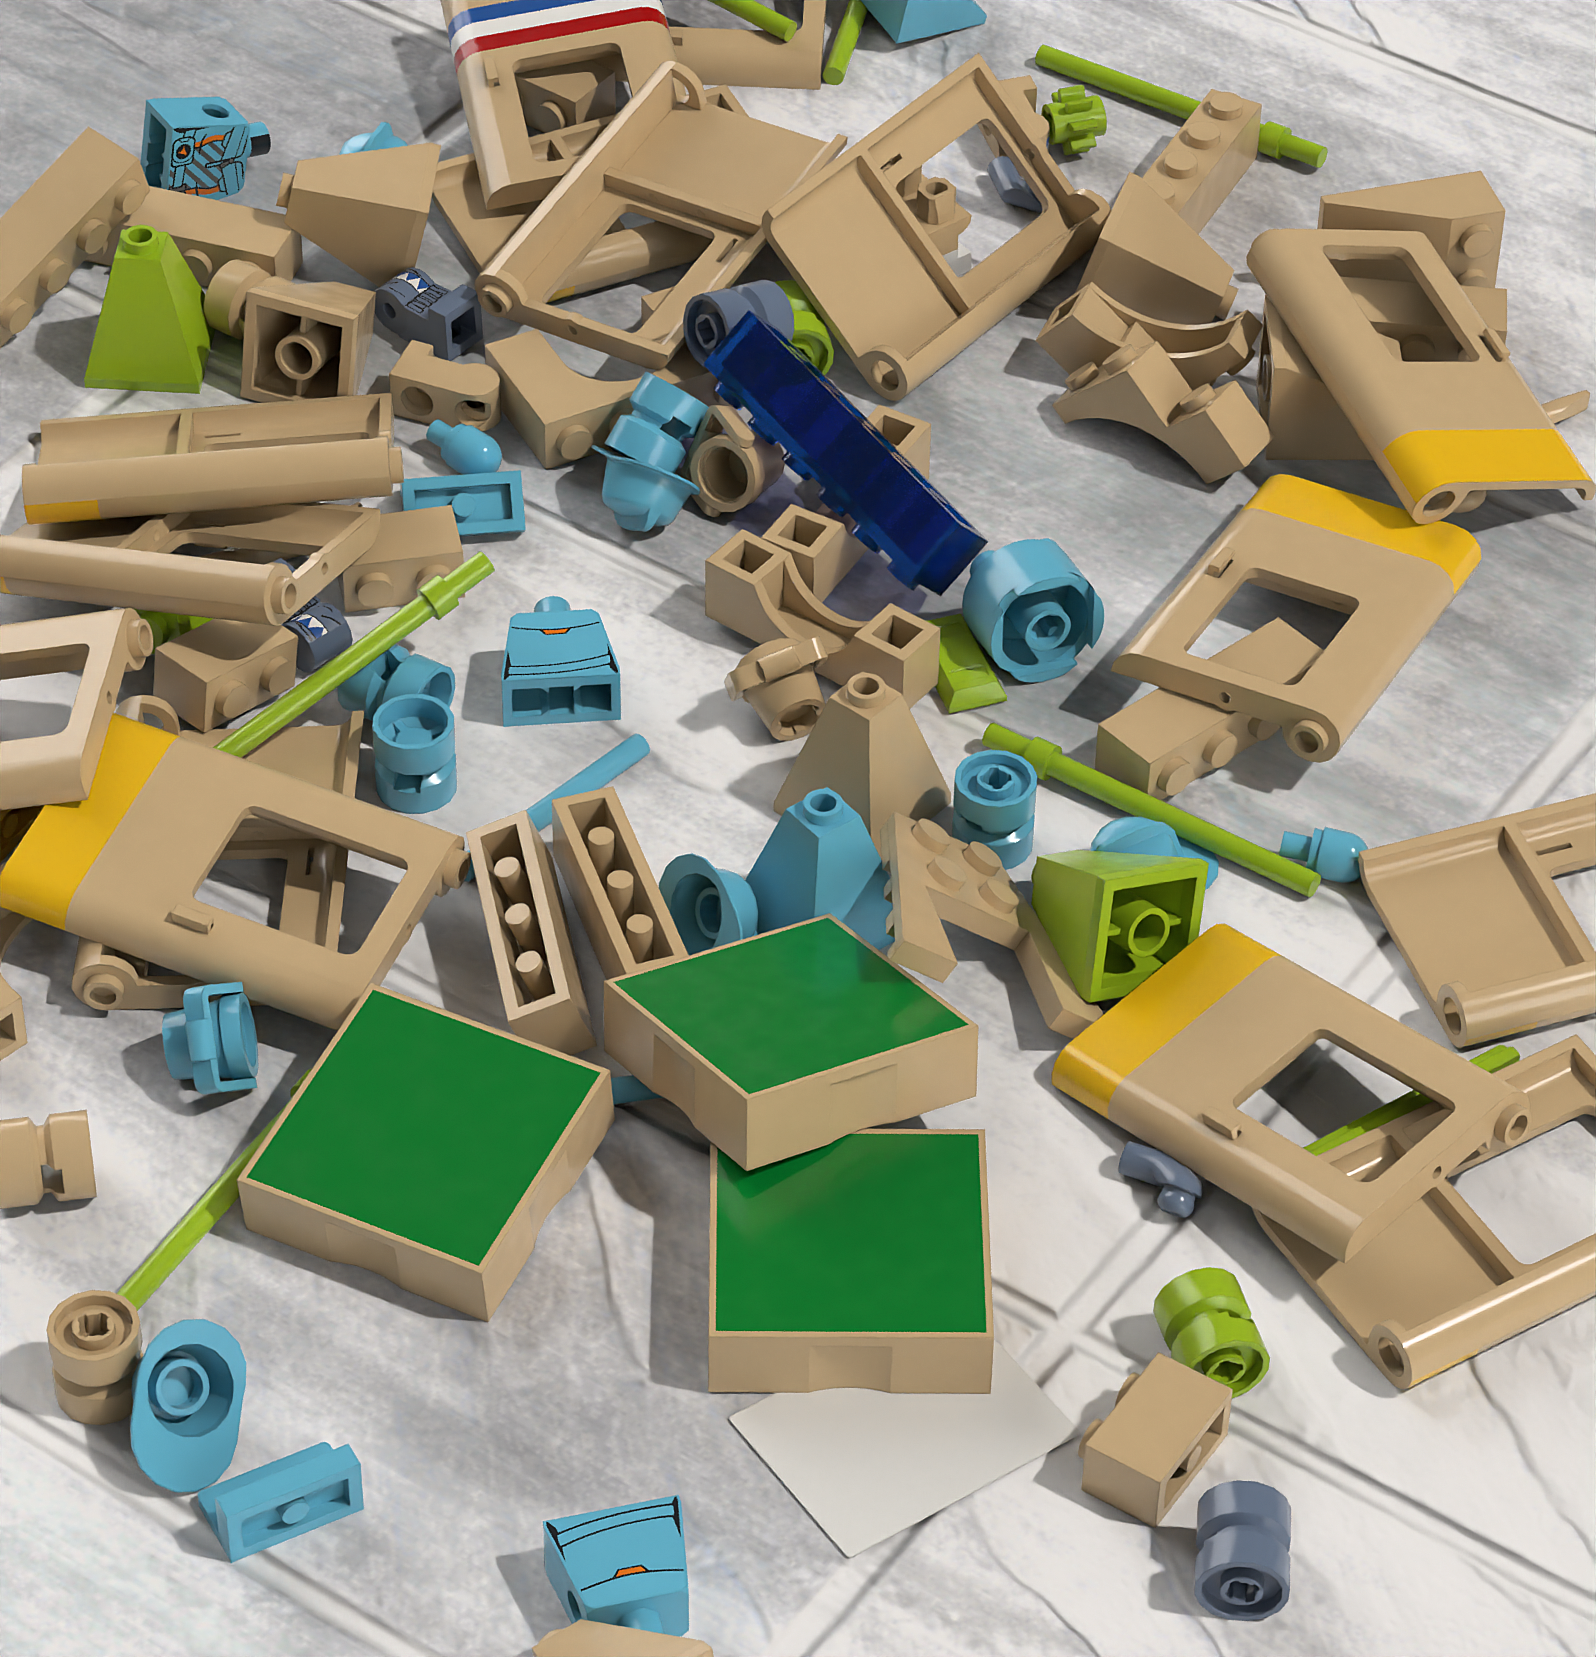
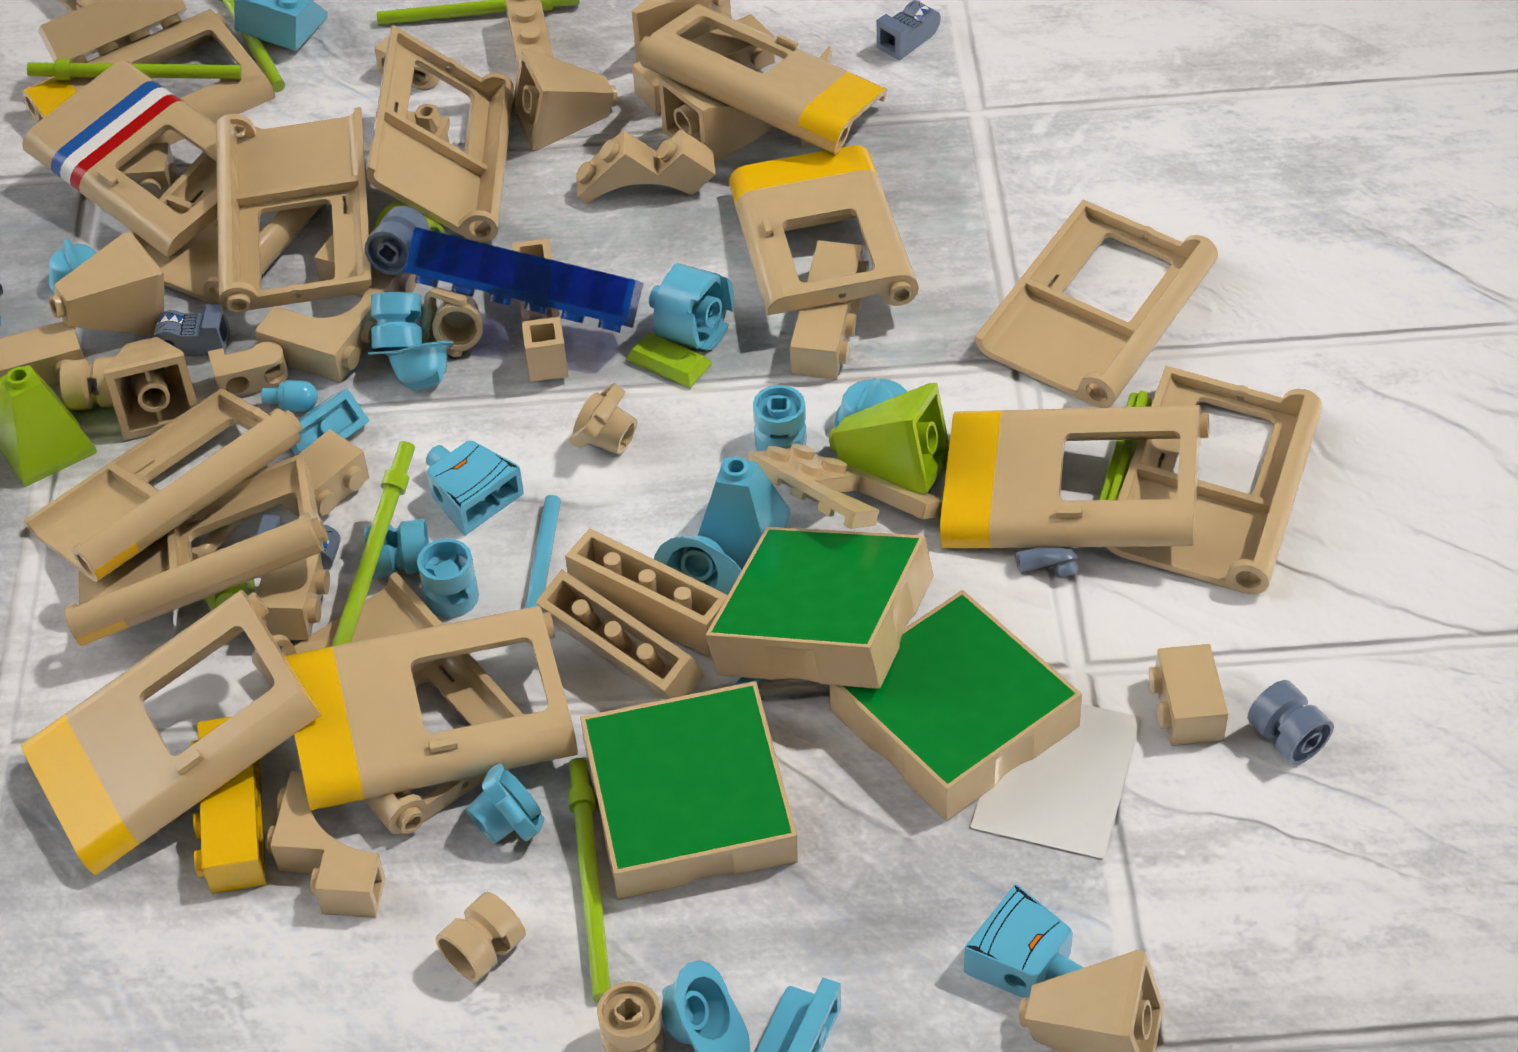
camera: 35 degrees left, 5 degrees up
(763, 597) = (545, 382): tan arch -> none
(870, 756) = (693, 441): tan slope -> none
(1011, 186) = (438, 95): sand blue arm -> none
(1050, 762) = (844, 376): lime bar -> none
(1075, 119) = (440, 37): lime gear -> none
(1095, 326) = (569, 144): tan arch -> none
(1212, 1328) = (1156, 621): lime wheel -> none
(1328, 852) = (951, 347): medium azure cylinder -> none

